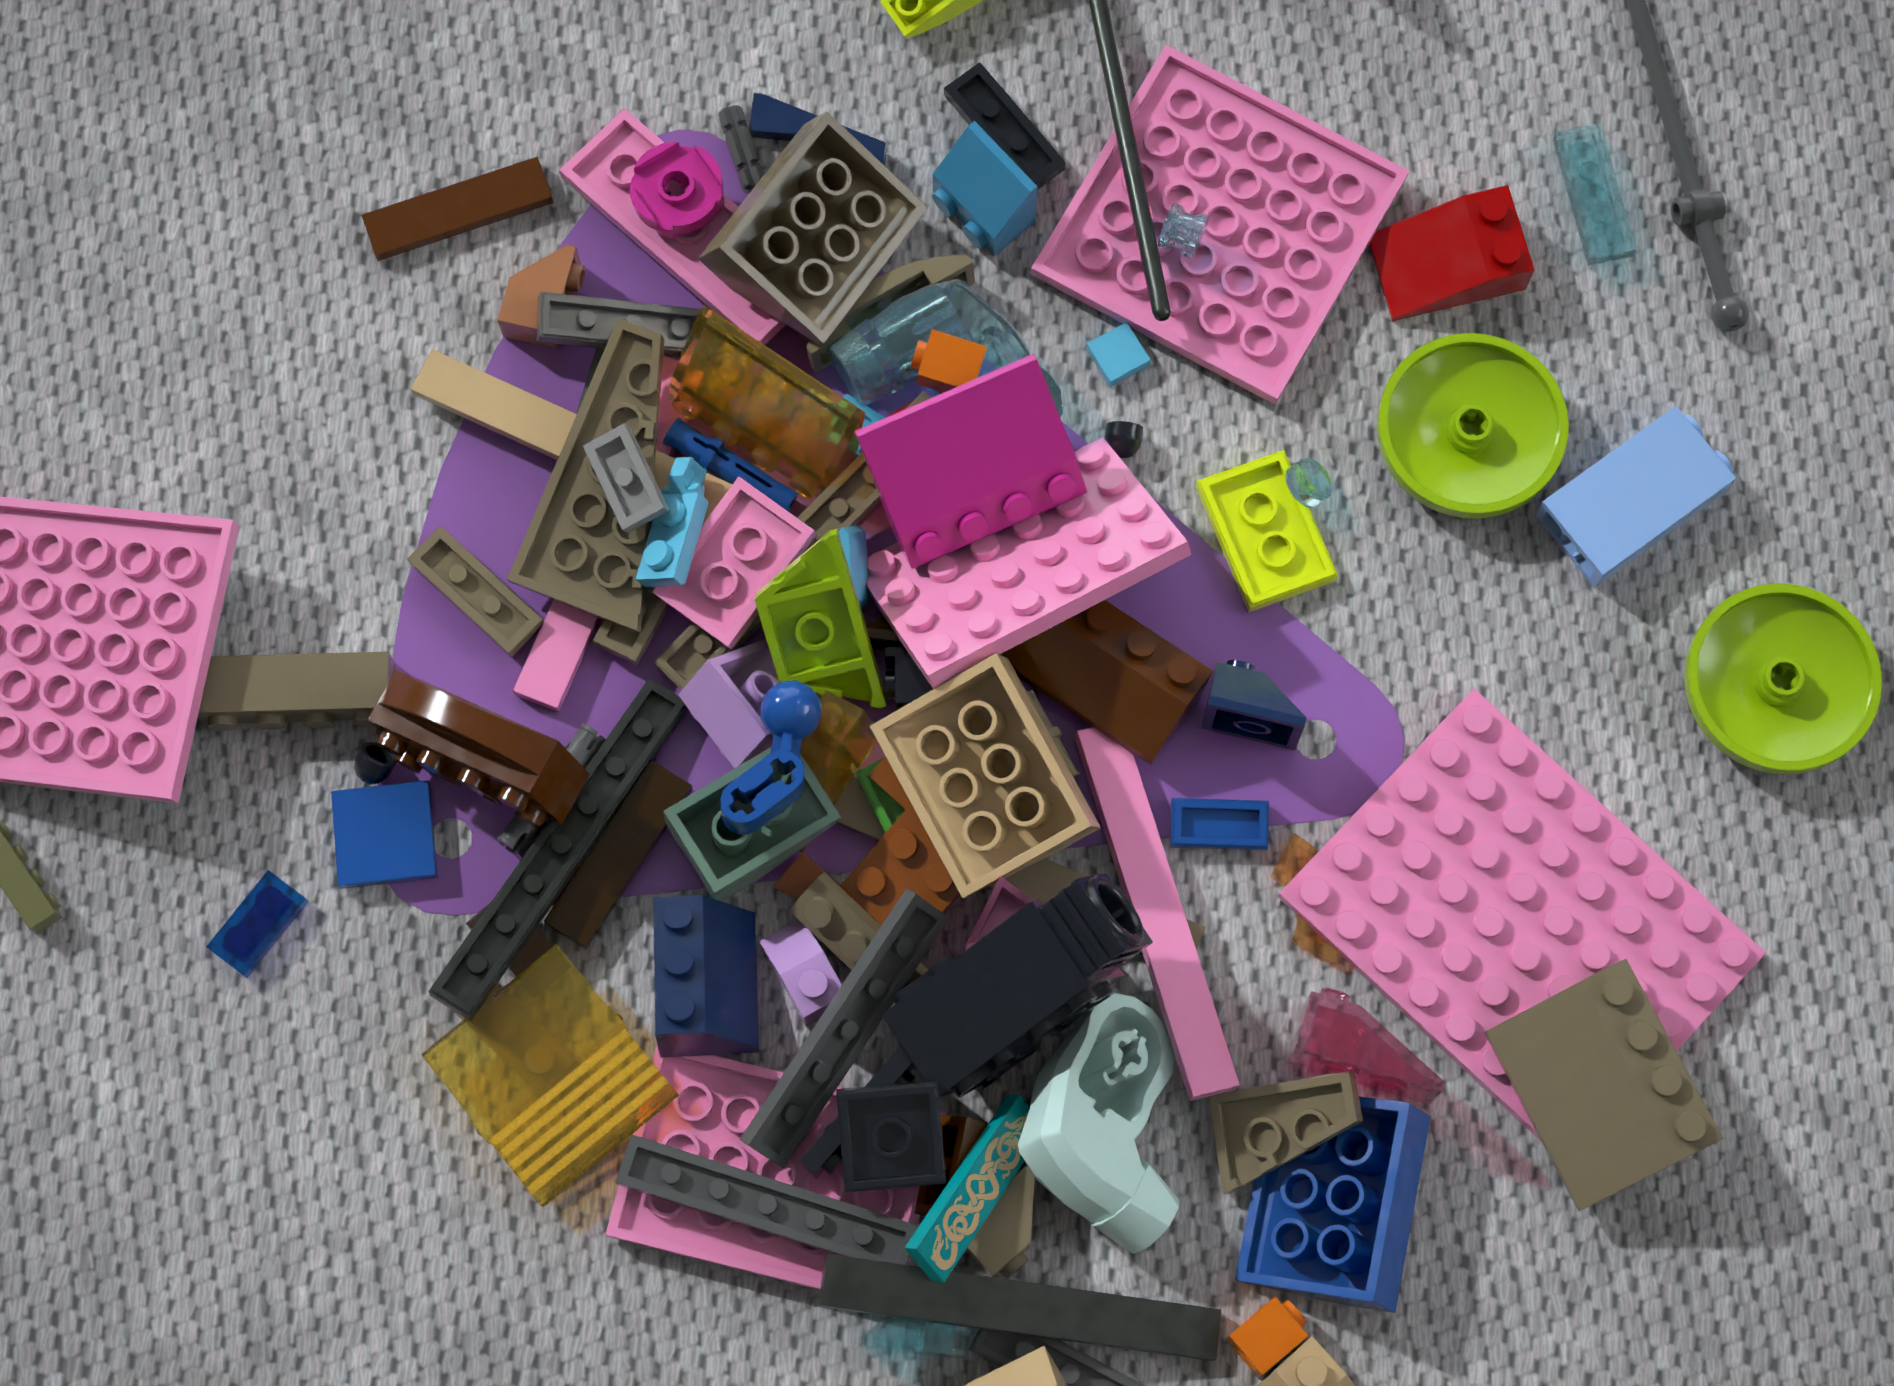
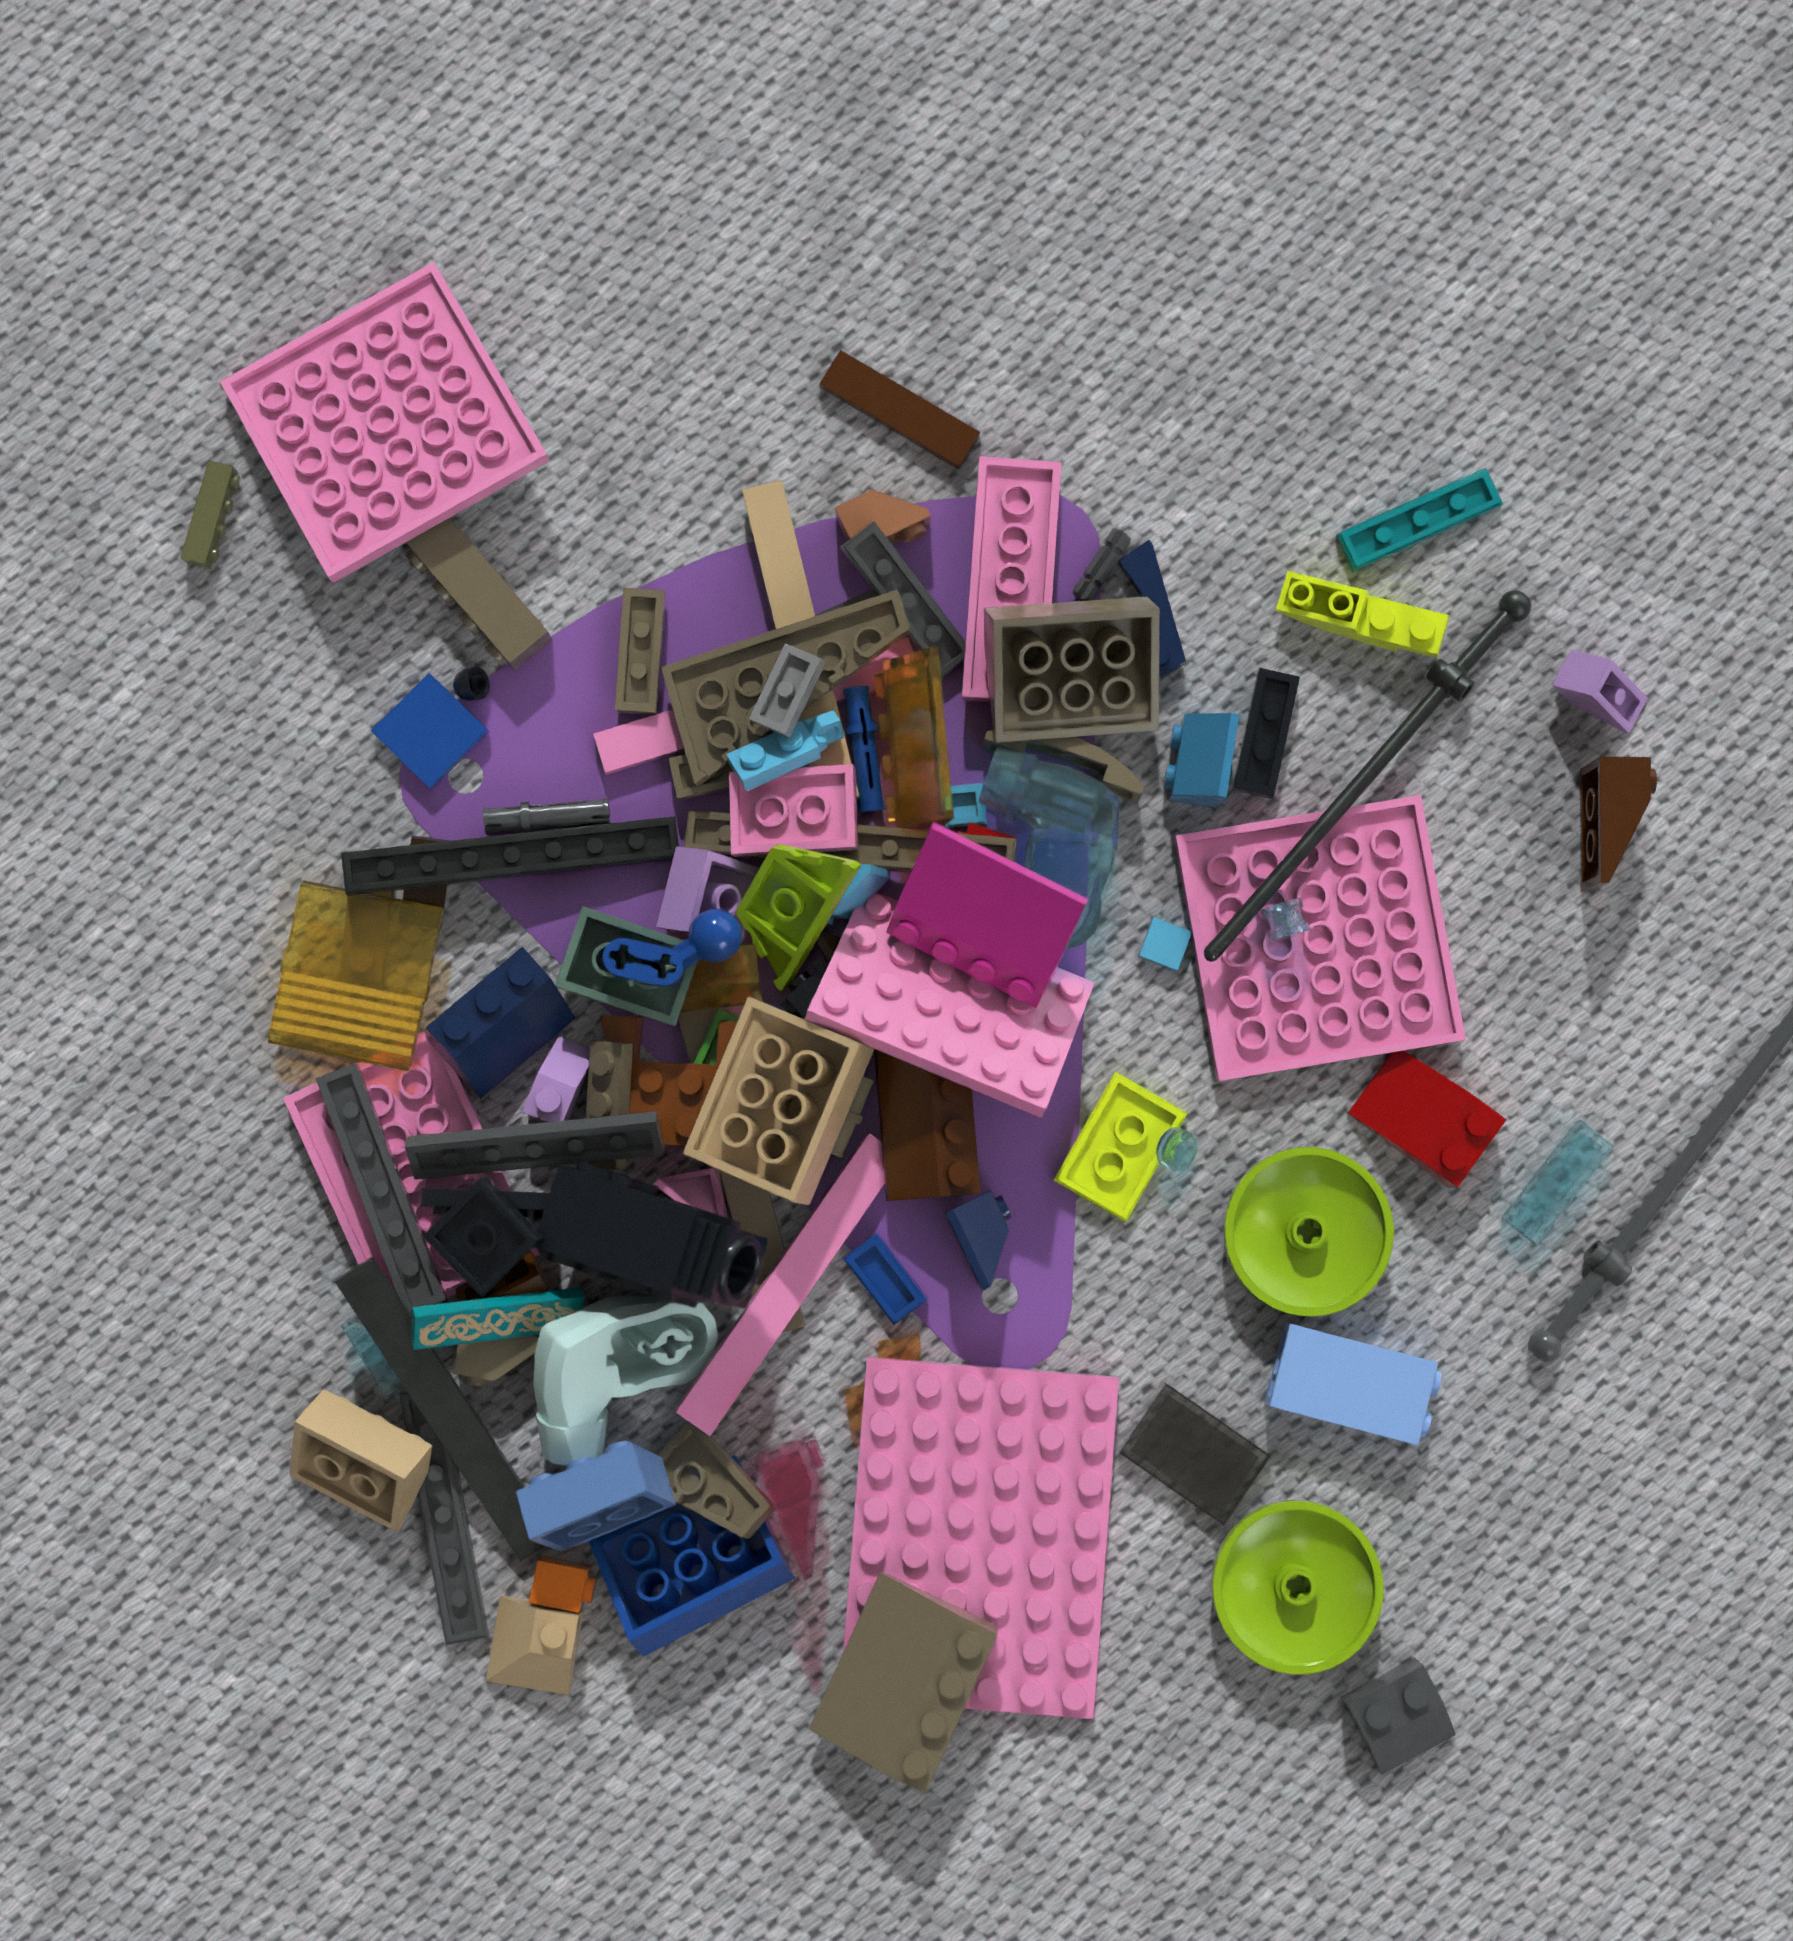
camera: 50 degrees right, 10 degrees up
(257, 924) = (306, 699): clear blue plate -> none
(477, 749) = (524, 748): reddish brown piece -> none
(617, 856) = (540, 895): dark brown tile -> none
(682, 213) = (1014, 529): dark pink plate -> none
(946, 361) = (1044, 841): orange brick -> none
(1124, 437) = (1104, 997): black hinge -> none
(1213, 1229) = (595, 1496): none -> medium blue brick
(1592, 680) = (1194, 1454): none -> clear smoke tile

